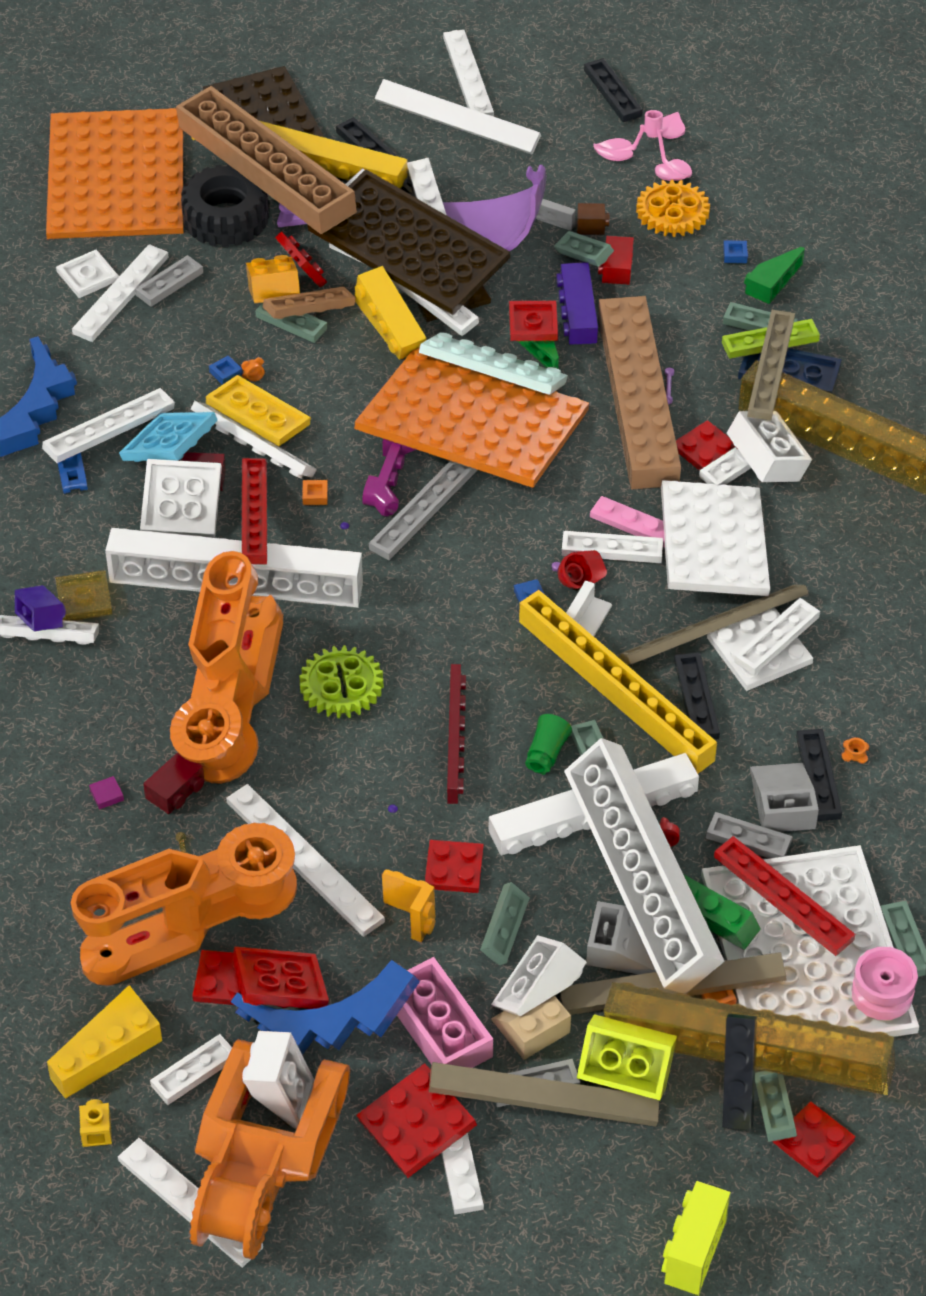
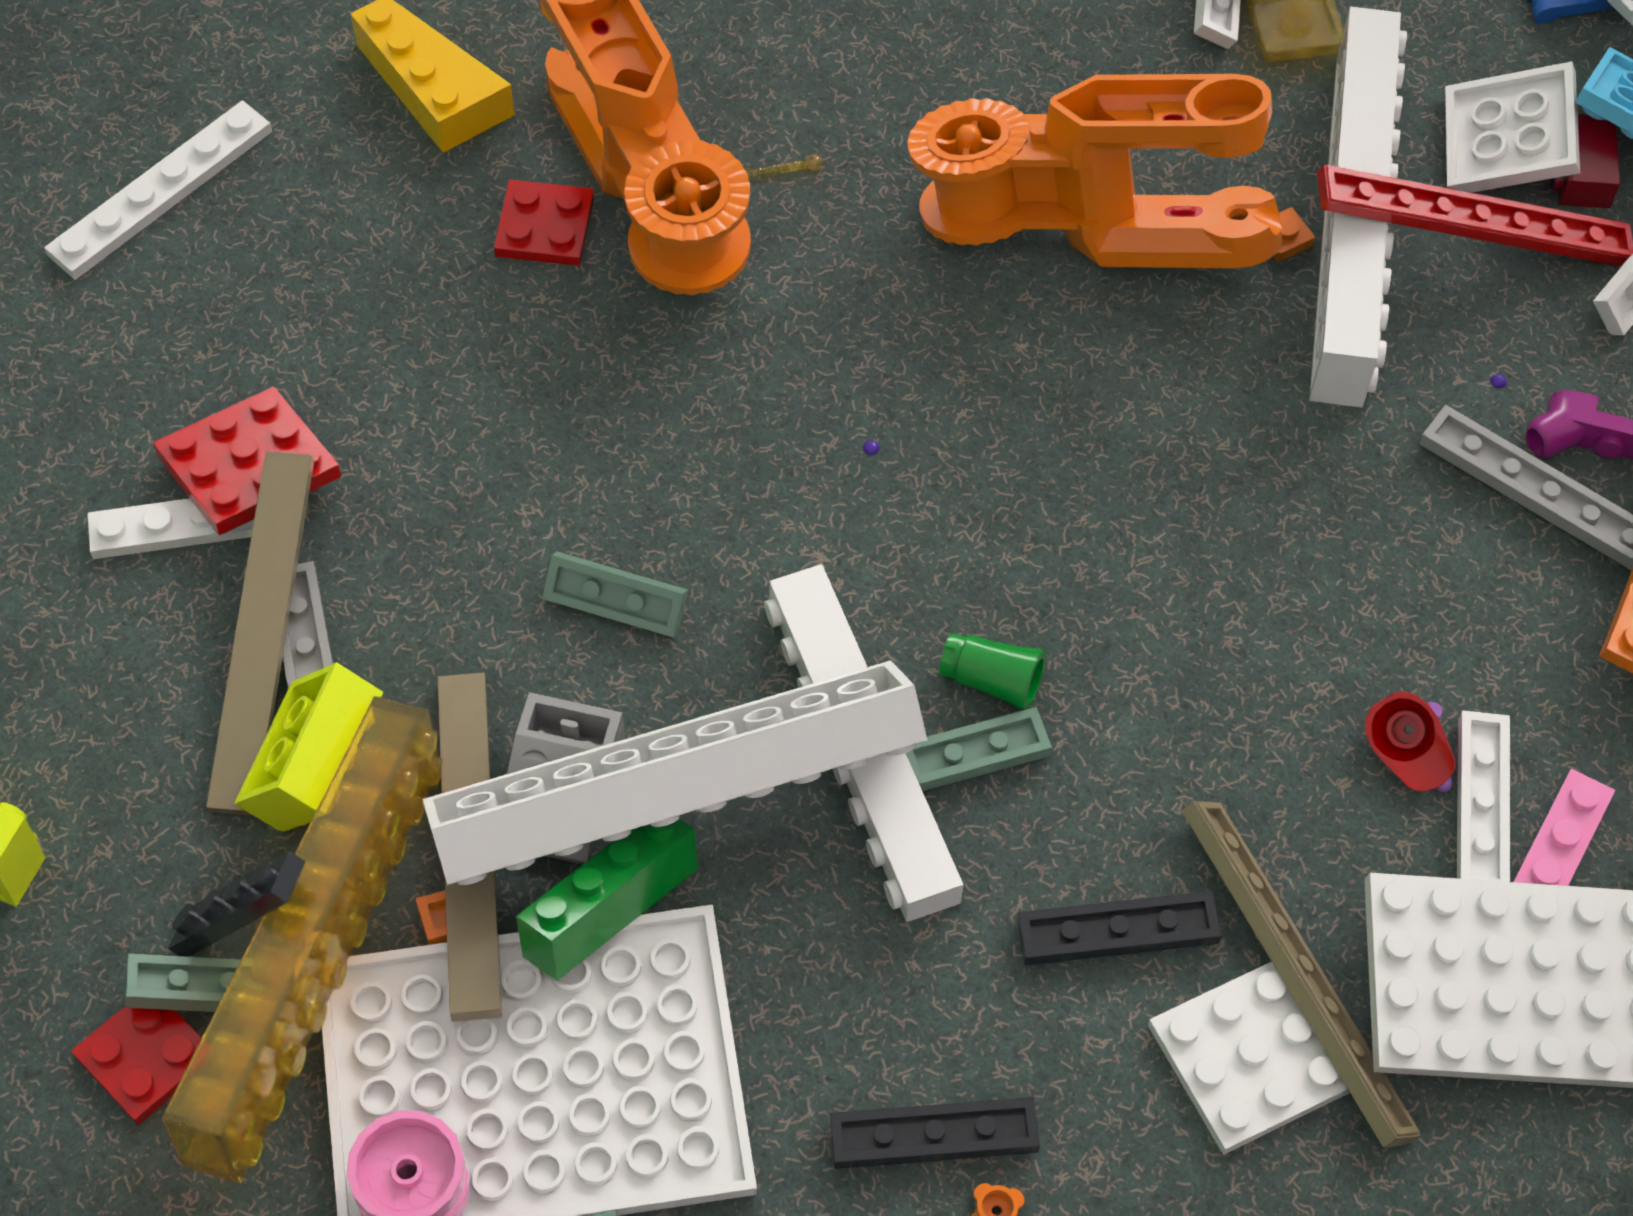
camera: 90 degrees right, 10 degrees up
(95, 1123) = (297, 71): yellow brick -> none
(106, 792) = (901, 67): magenta tile -> none
(174, 783) = (887, 136): dark red brick -> none
(191, 1070) = (379, 184): white plate -> none
(256, 1159) = (178, 230): orange arm -> none
(279, 978) = (507, 269): red plate -> none
(279, 1075) = (313, 263): white slope -> none
(311, 864) = (762, 324): white plate -> none
(315, 492) = (1562, 329): orange plate -> none
(359, 674) = (1129, 366): lime gear -> none
(370, 1008) = (415, 334): blue arch -> none
(412, 897) = (640, 465): light orange bracket -> none
(443, 1020) = (423, 488): bright pink brick -> none
(454, 866) = (744, 529): red plate -> none
(456, 742) = (1005, 528): dark red plate -> none
(526, 589) = (1357, 662): blue plate -> none
(535, 1028) = (416, 627): tan slope -> none
(541, 974) = (486, 631): white slope -> none
(589, 610) = (1315, 750): white panel -> none
(616, 681) = (1132, 785): yellow brick -> none
(670, 831) = (793, 854): red tile -> none
(757, 838) = (787, 995): light grey plate -> none
(776, 636) = (1256, 1071): white plate -> none
(784, 896) = (629, 1031): red plate -> none
(785, 797) = (879, 1056): light grey slope -> none

